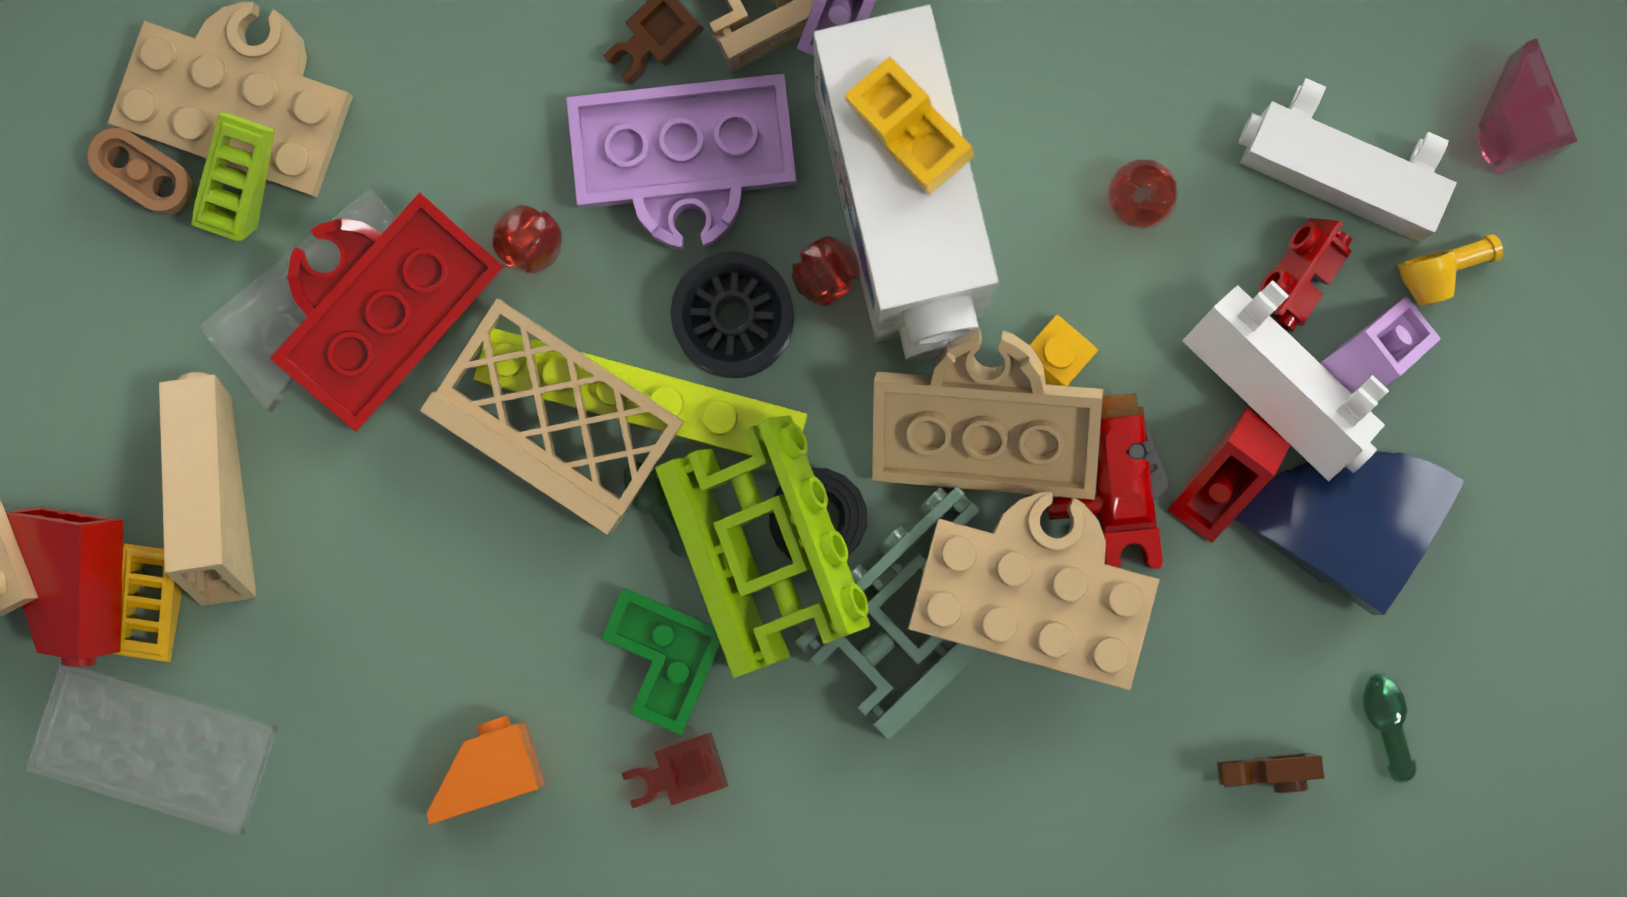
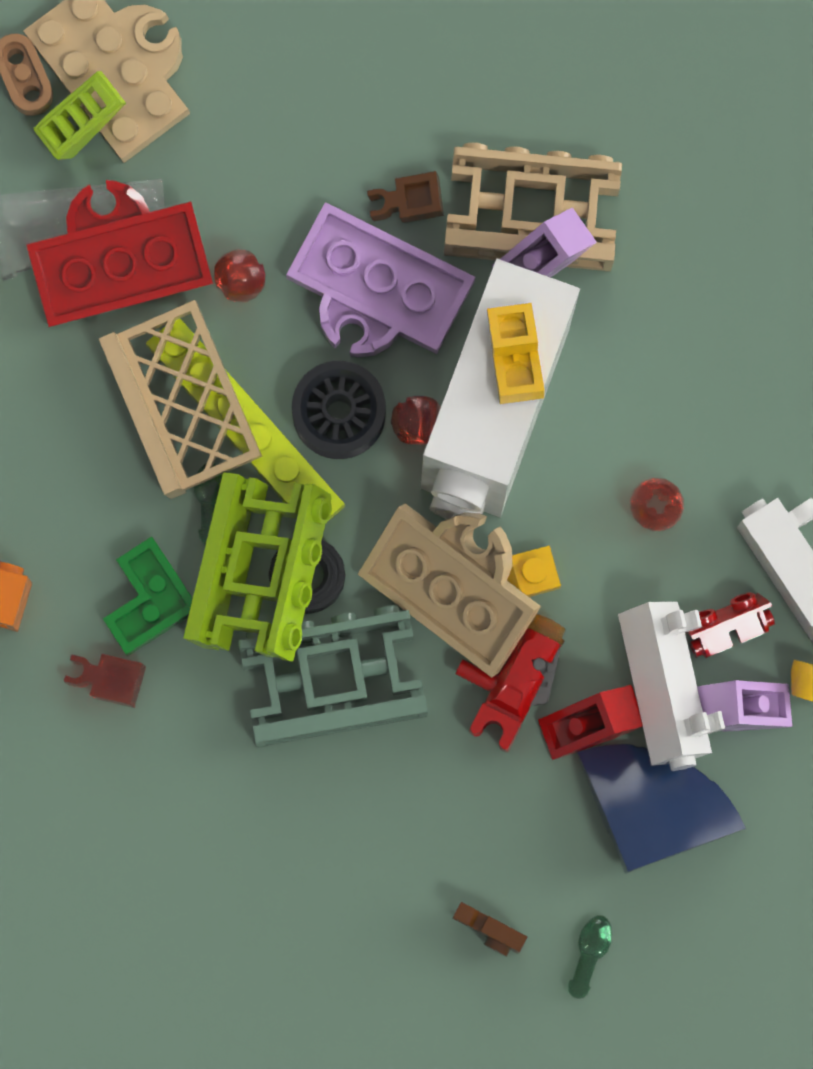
camera: 25 degrees right, 5 degrees down
(1036, 594) = (411, 710): tan plate -> none

